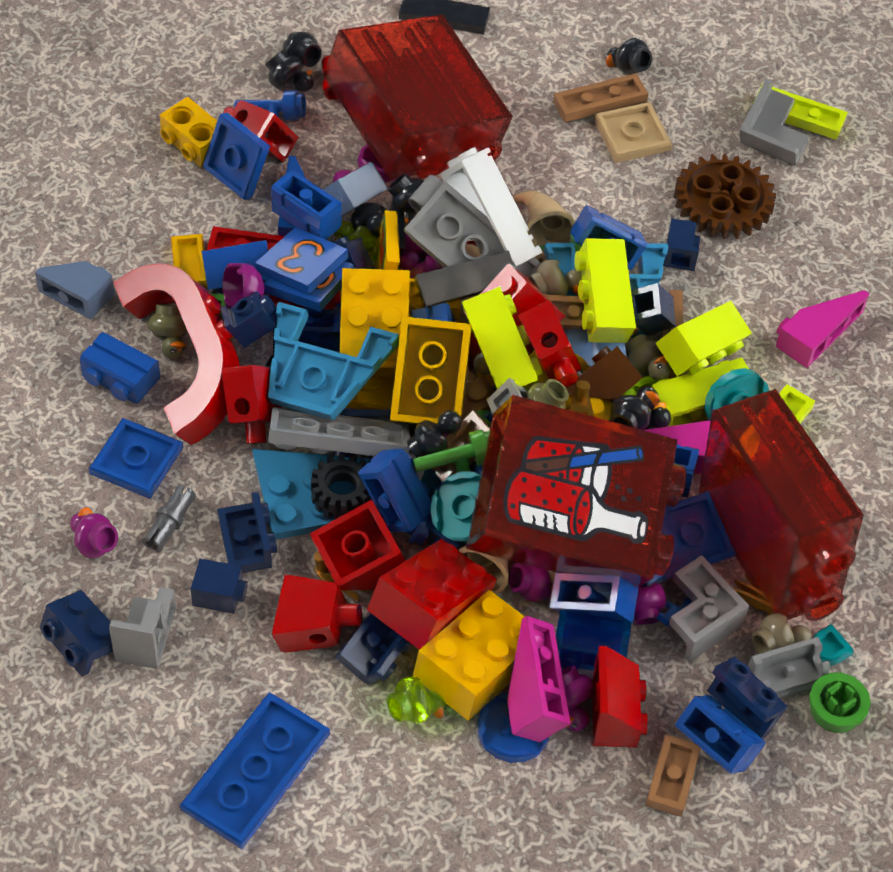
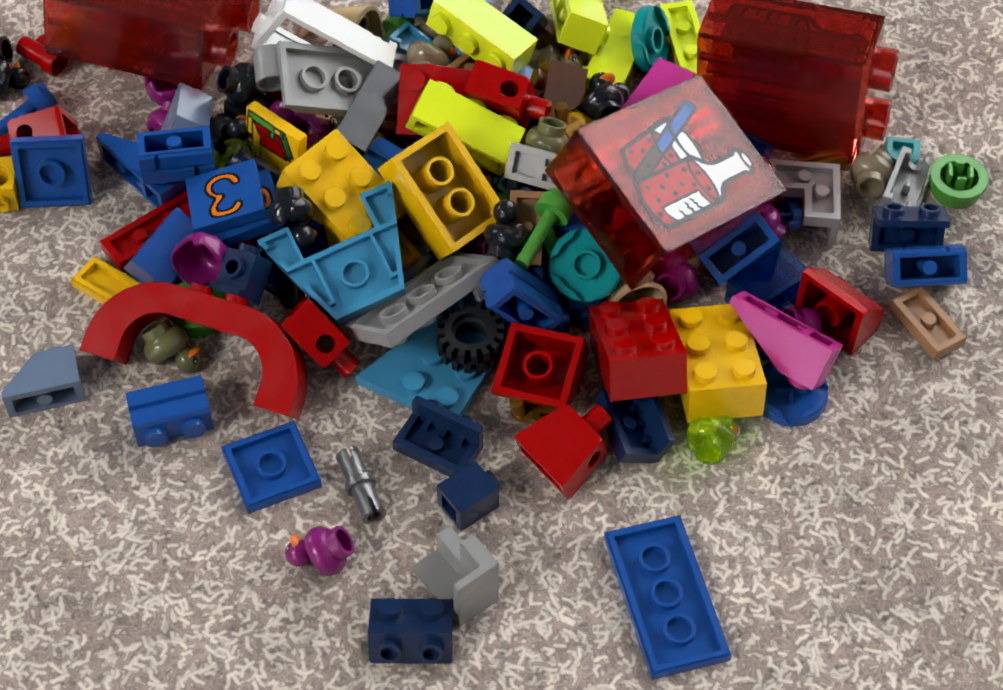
camera: 45 degrees left, 0 degrees up
(321, 301) = (293, 211): none -> black animal

